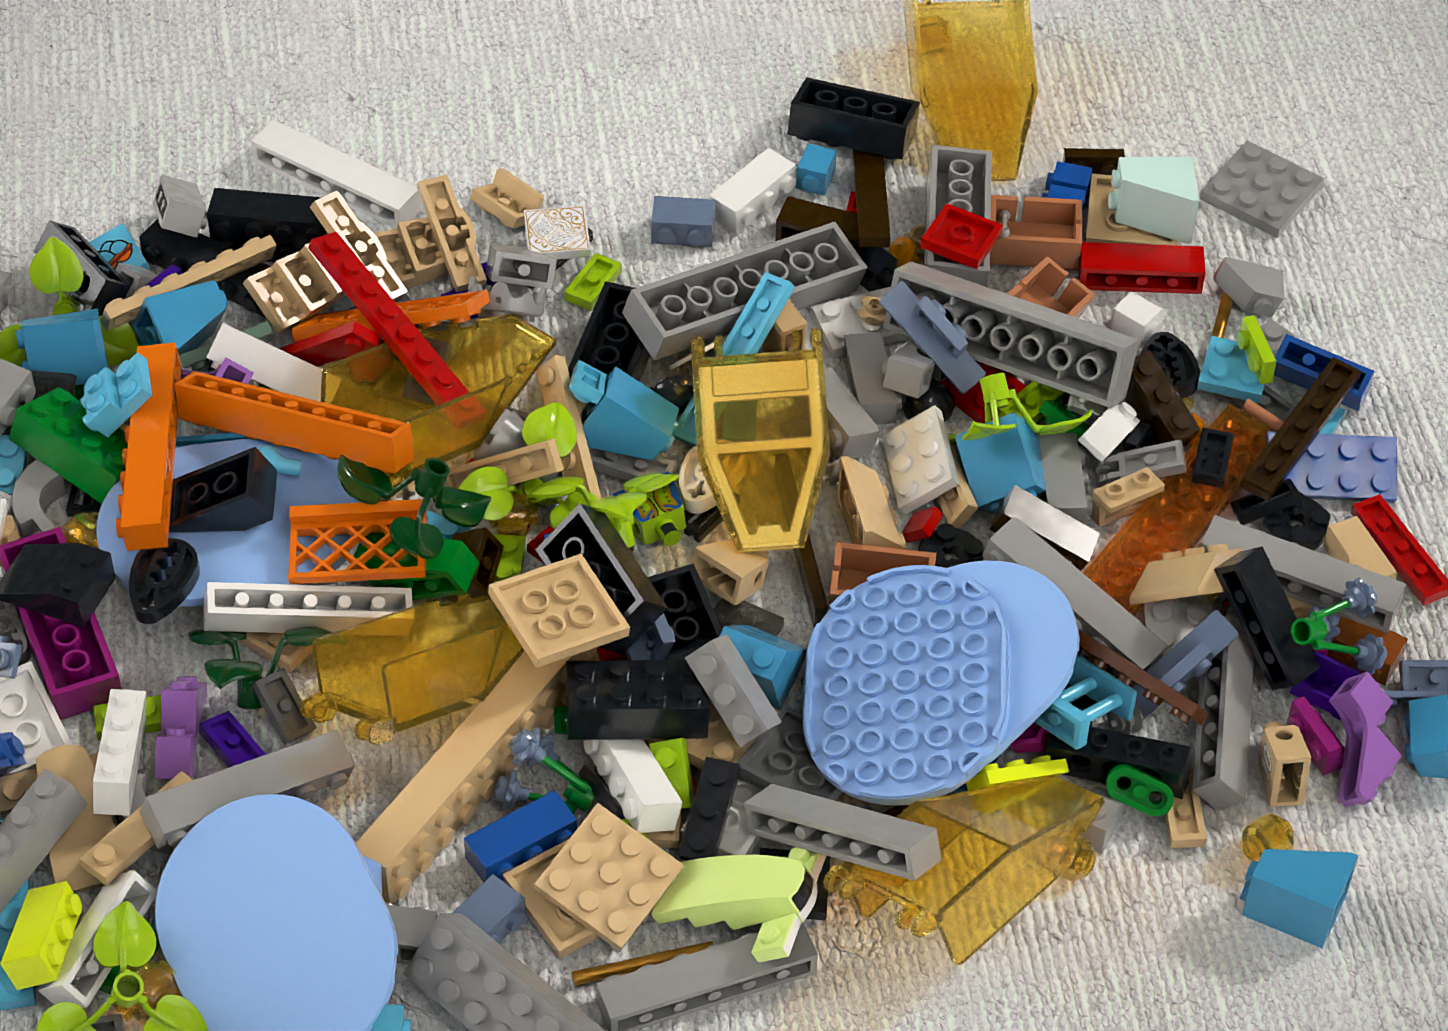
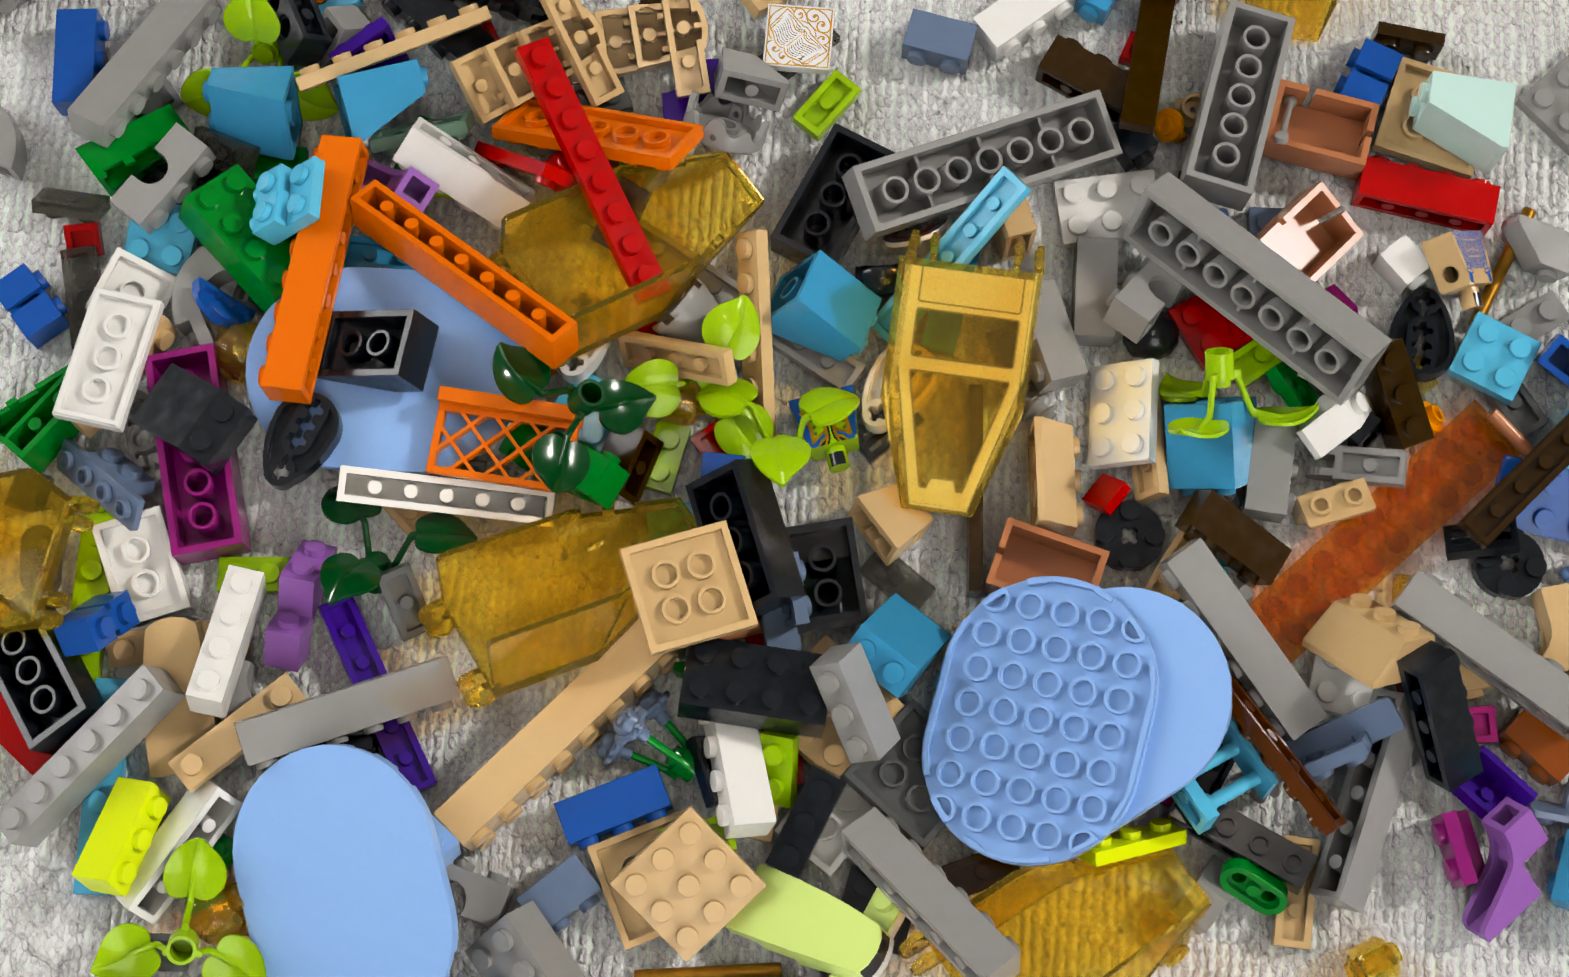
camera: 15 degrees right, 25 degrees up
(58, 503) = (220, 306): none -> blue plate
(283, 465) = (437, 312): medium azure arm -> none
(587, 383) = (785, 268): medium azure plate -> none
(872, 311) = (1115, 215): tan plate -> none
(934, 335) = (1166, 267): sand blue bracket -> none
(961, 236) = (1231, 145): red plate -> none
(1184, 305) = (1460, 265): none -> tan torso
(1212, 457) = (1438, 475): black plate -> none
(1258, 352) = (1523, 361): lime plate -> none
(1284, 748) = (1414, 874): tan torso -> none
(1320, 627) = (1499, 727): sand blue plant -> none

